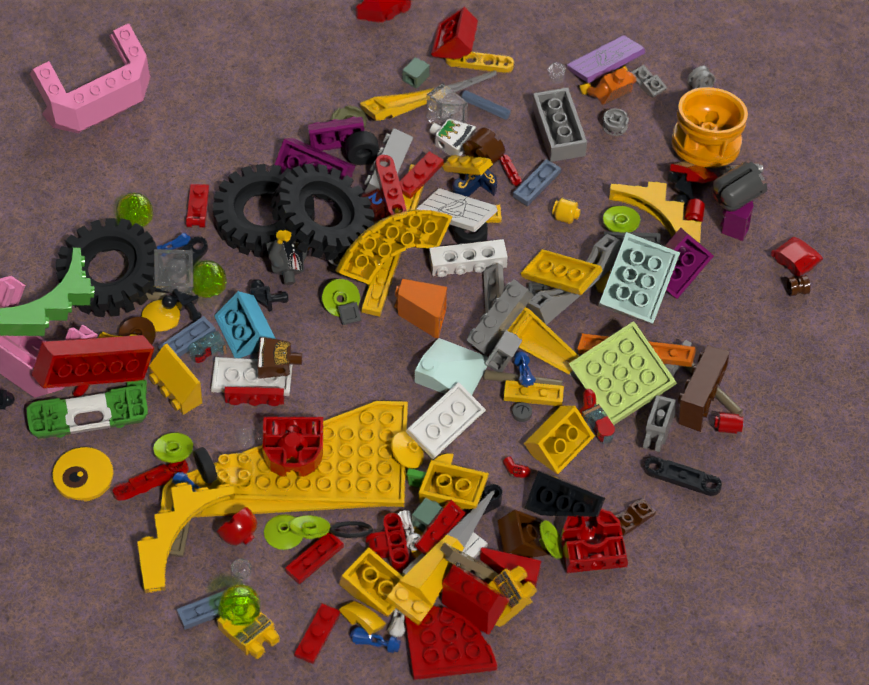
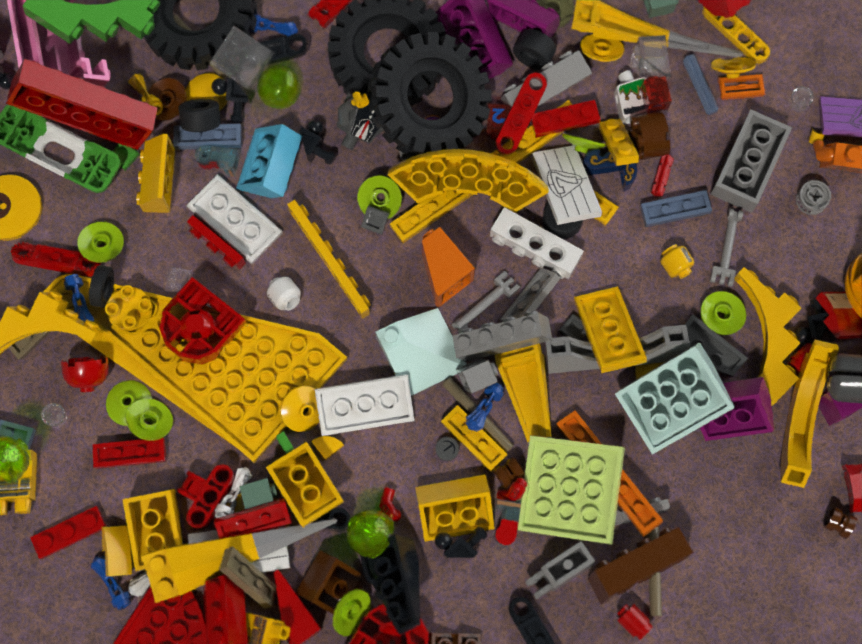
camera: 40 degrees right, 20 degrees up
(172, 325) = (199, 115): none -> black tyre
(276, 358) = (263, 219): reddish brown torso -> none
(329, 394) = (283, 293): none -> white head
(342, 355) = (334, 265): none -> yellow plate
(351, 535) = (172, 467): black tyre -> none
(405, 121) = (602, 48): none -> yellow dish
(444, 180) = (582, 144): none -> lime dish
(466, 121) = (655, 94): none -> clear red brick
(469, 298) = (502, 288): none -> light grey hinge
(498, 80) = (733, 67): none -> yellow dish
(520, 485) = (369, 531): none -> clear neon green cylinder
(526, 86) = (743, 94): none -> orange tile
(574, 395) = (508, 472): none -> reddish brown wheel
(585, 458) = (460, 547): none -> black piece
(598, 198) = (724, 271): none -> light grey hinge
(718, 238) = (802, 414): none -> yellow arch

